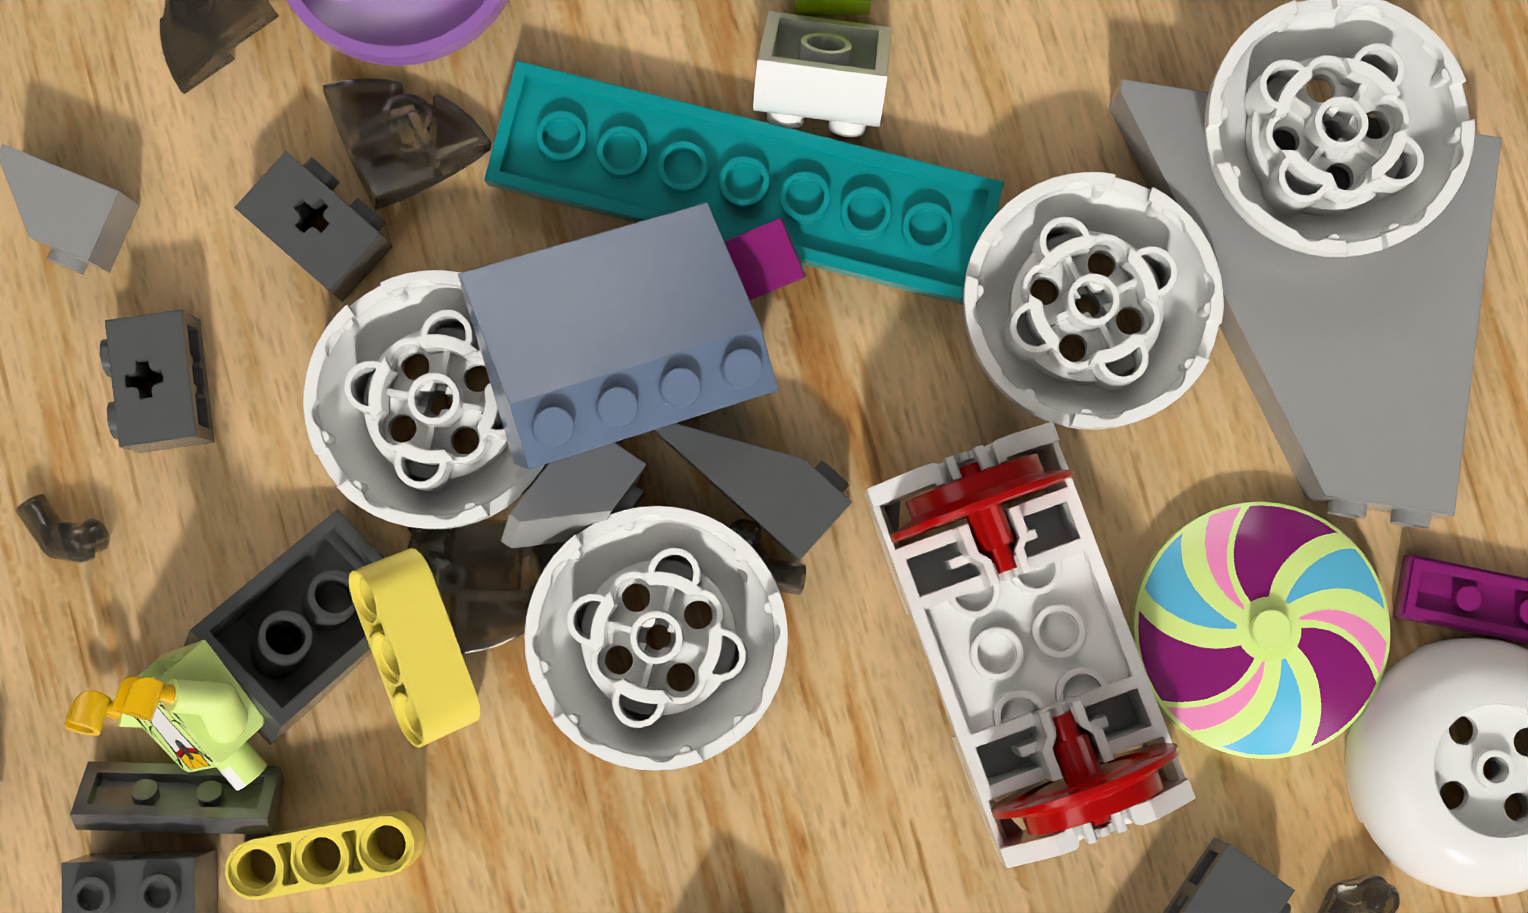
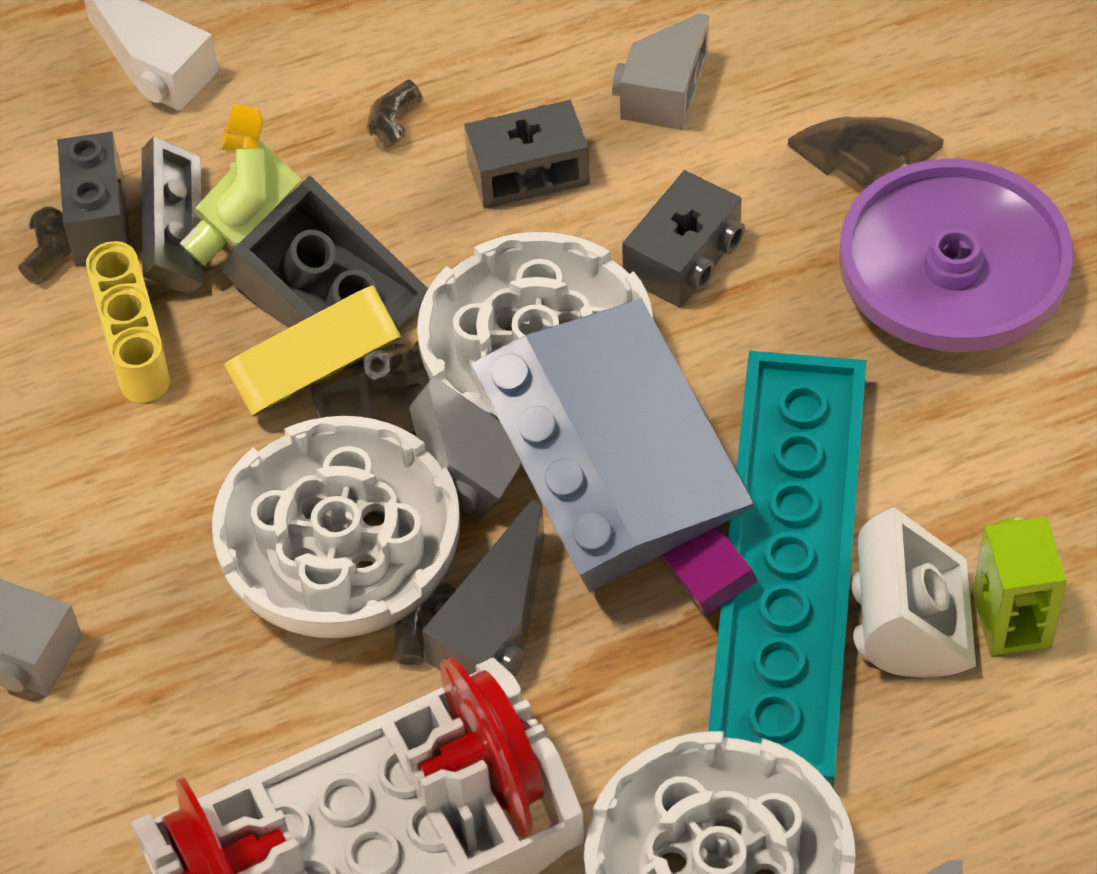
camera: 85 degrees right, 30 degrees down
(400, 139) = (778, 292): clear smoke brick -> none

